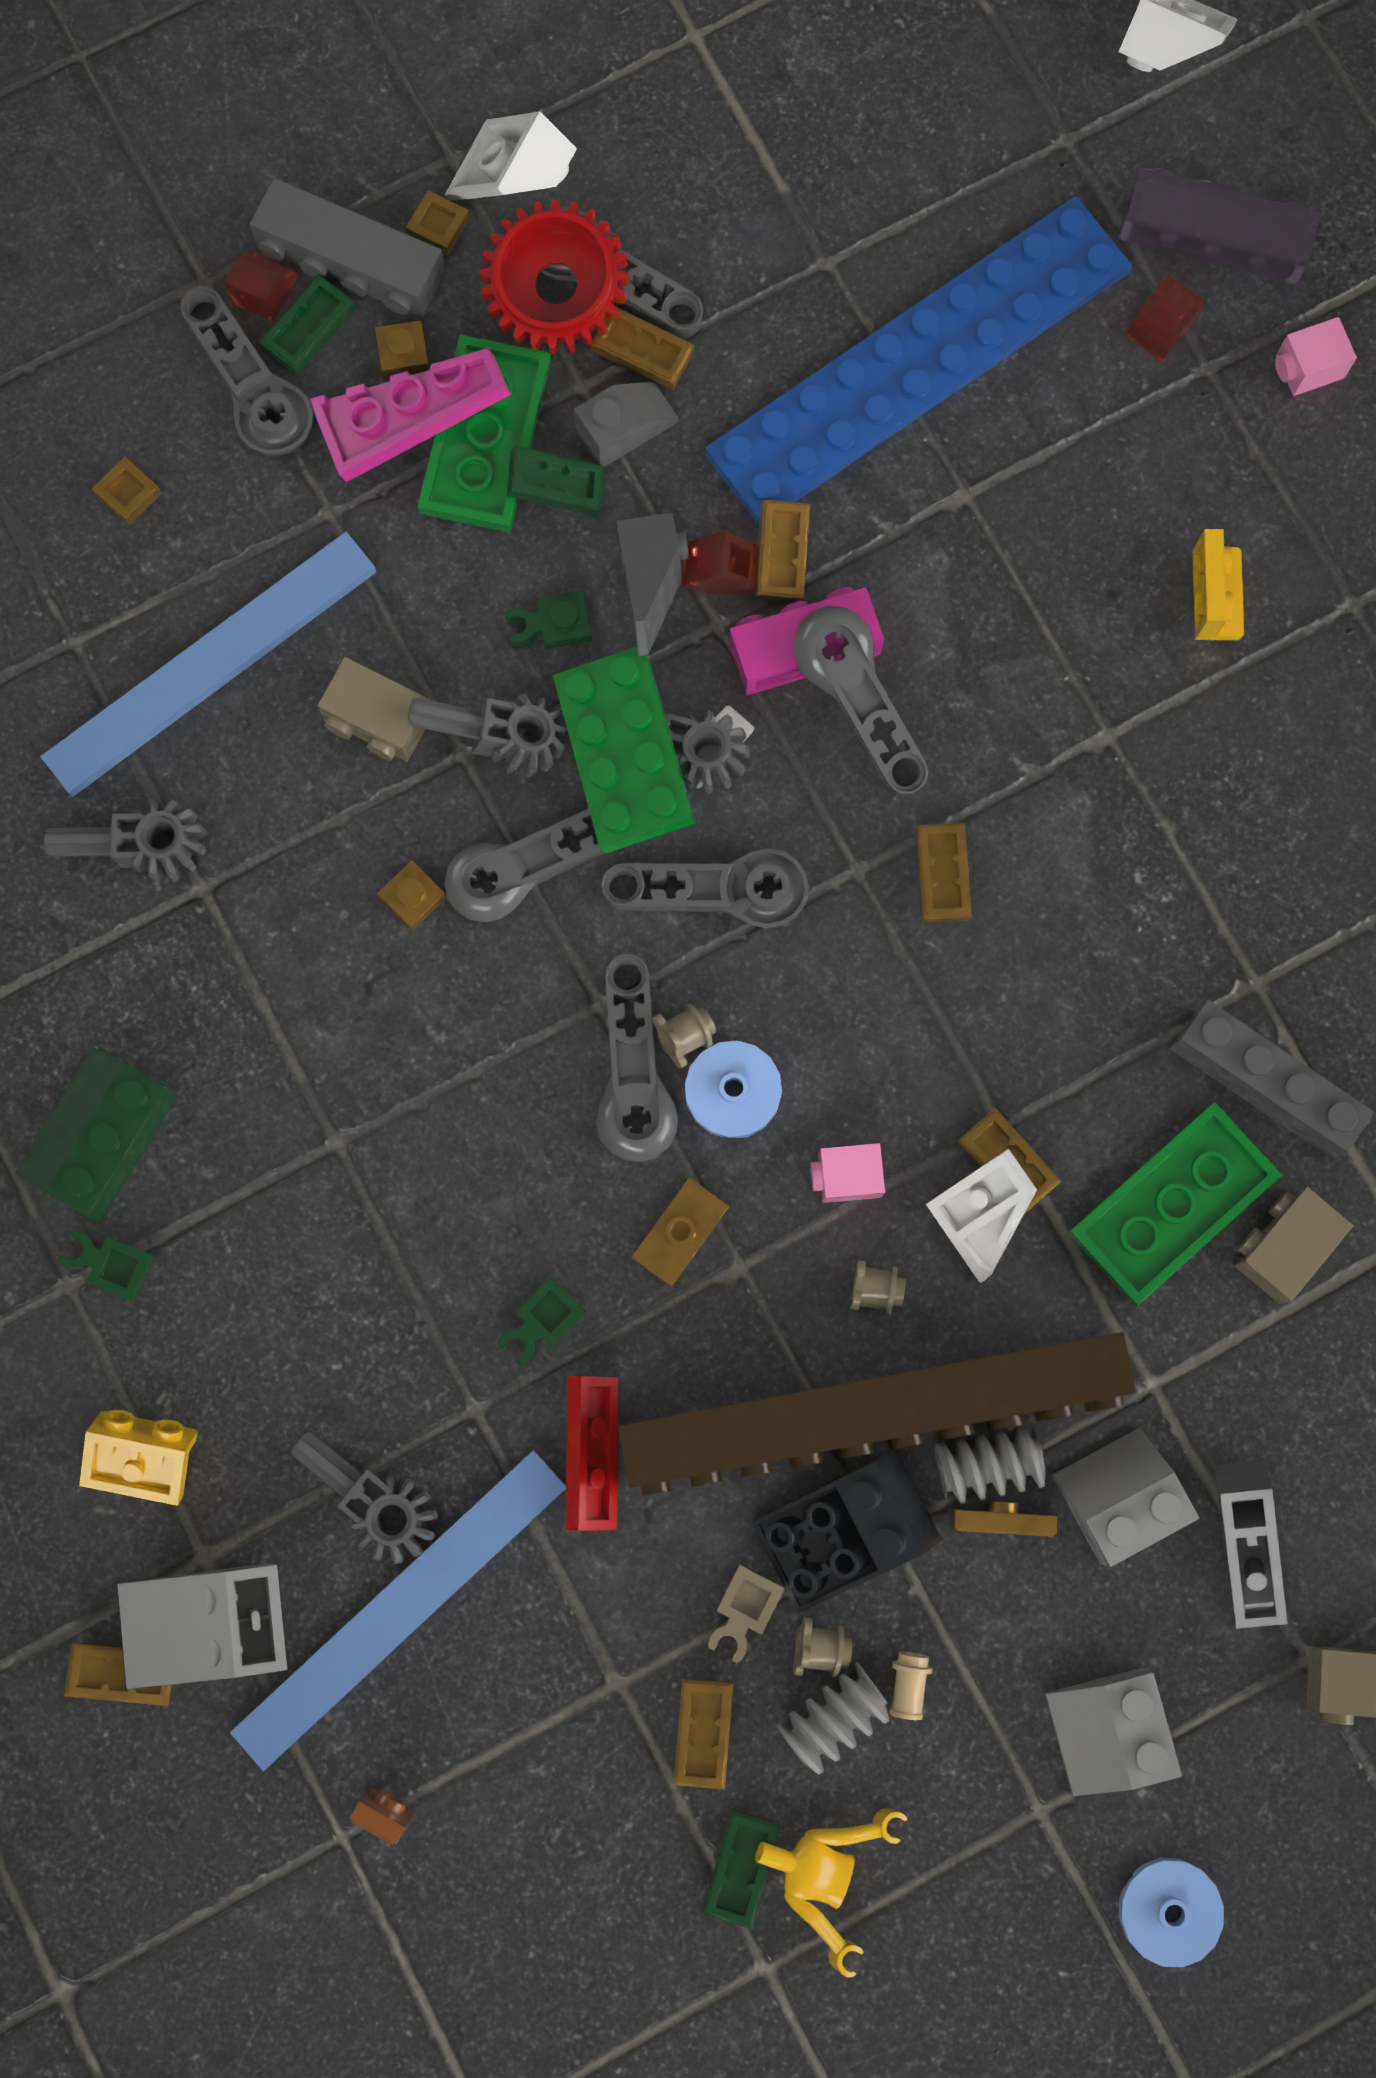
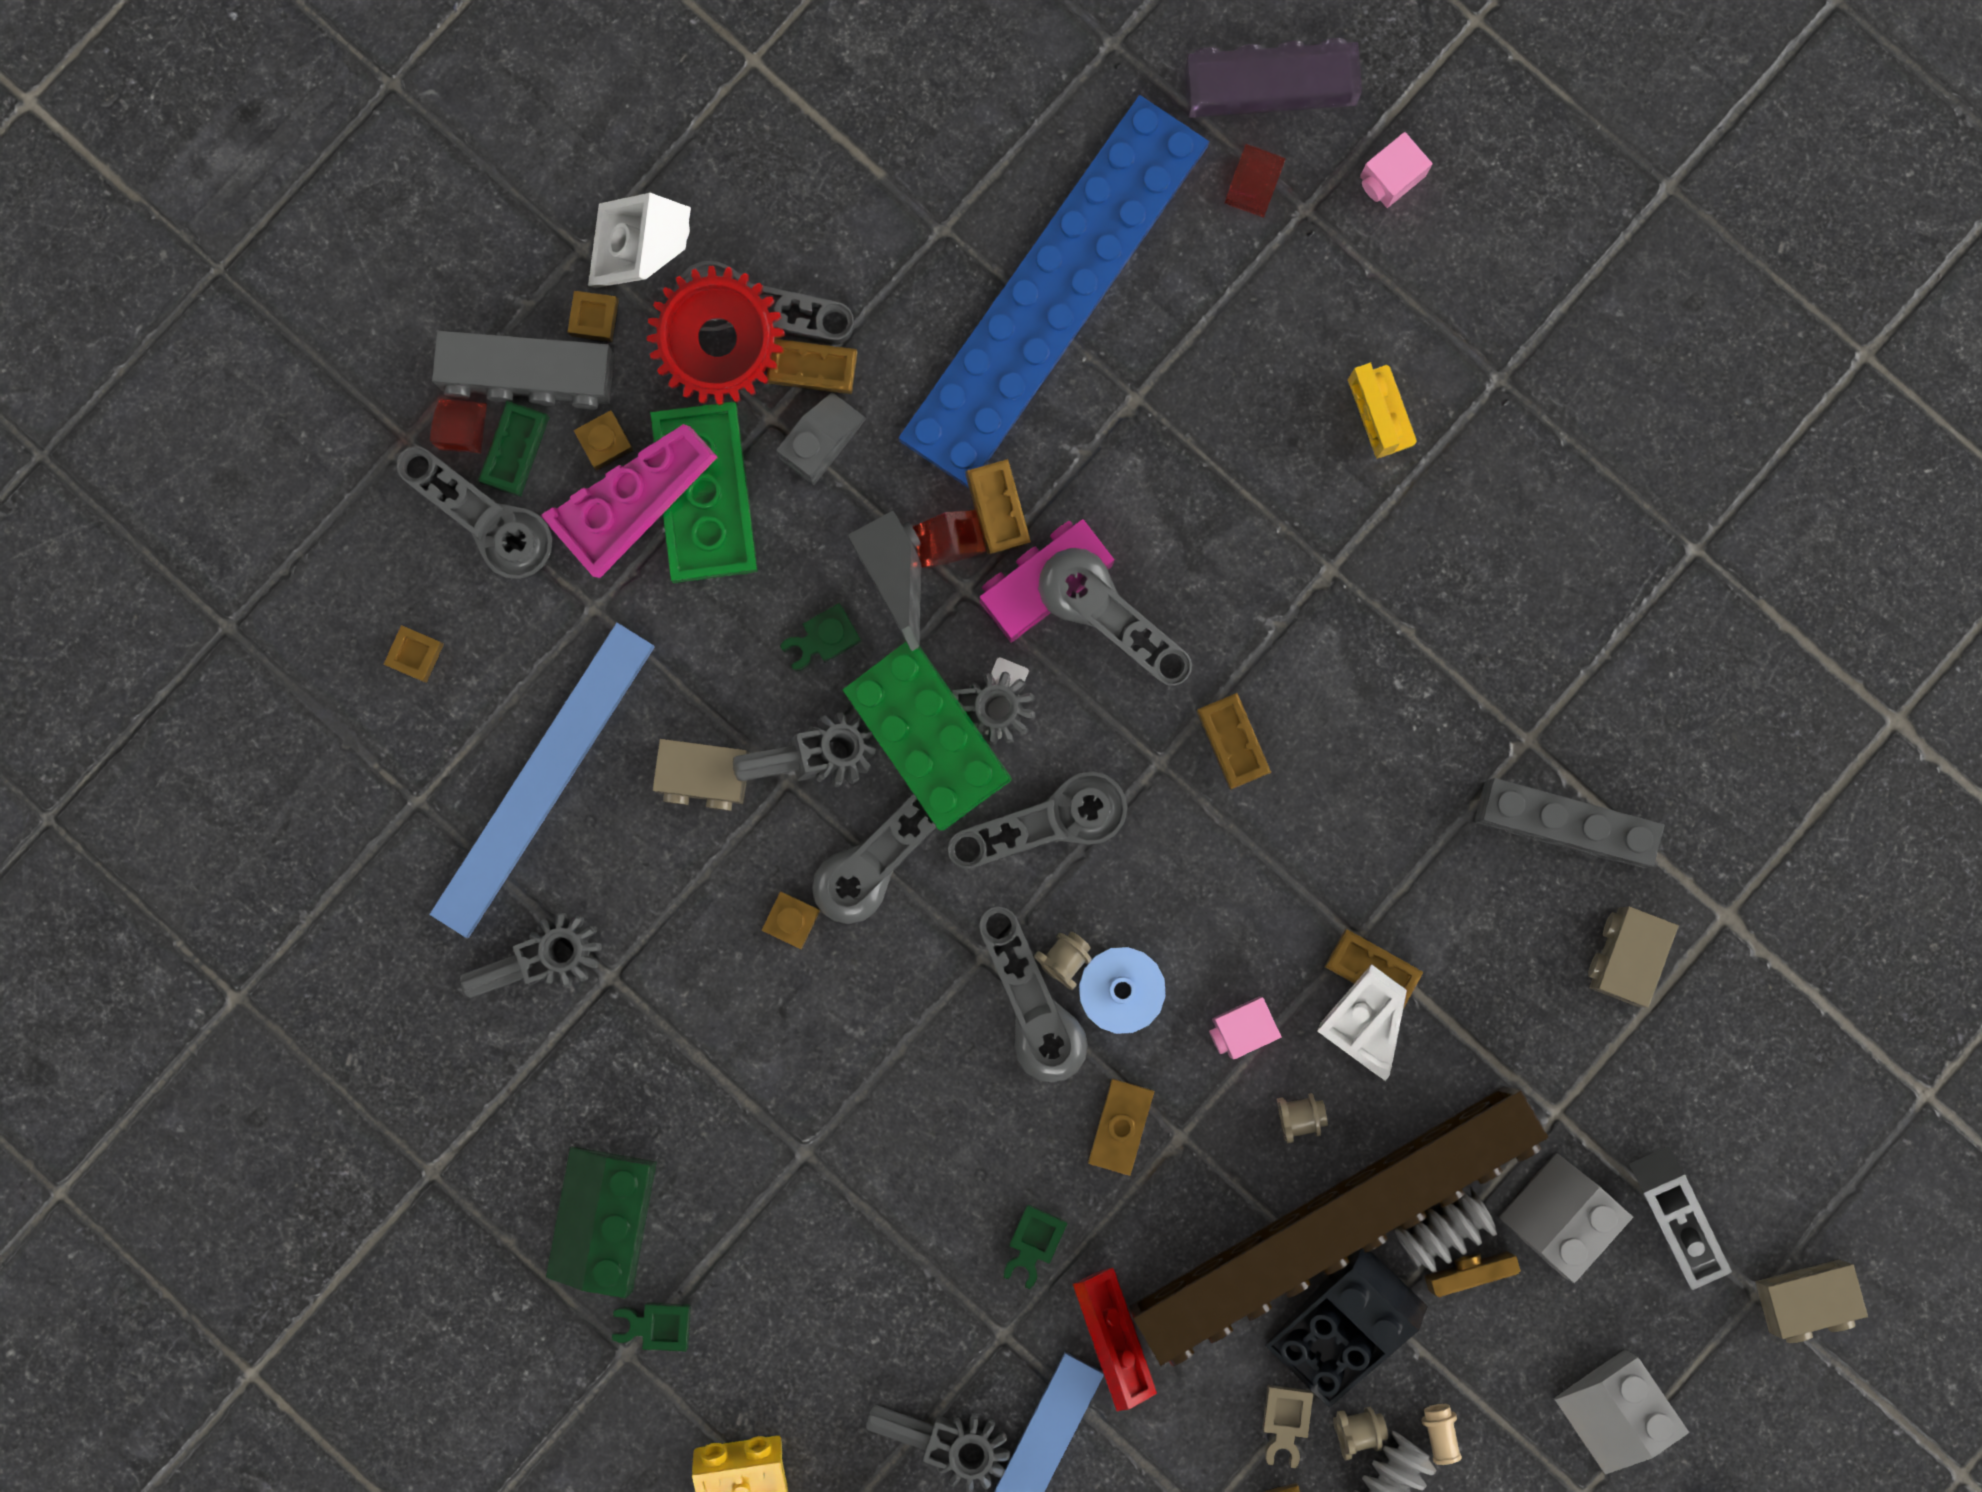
camera: 15 degrees left, 5 degrees up
(555, 480) = (780, 514): dark green plate -> none
(1174, 1204) = (1523, 956): green plate -> none

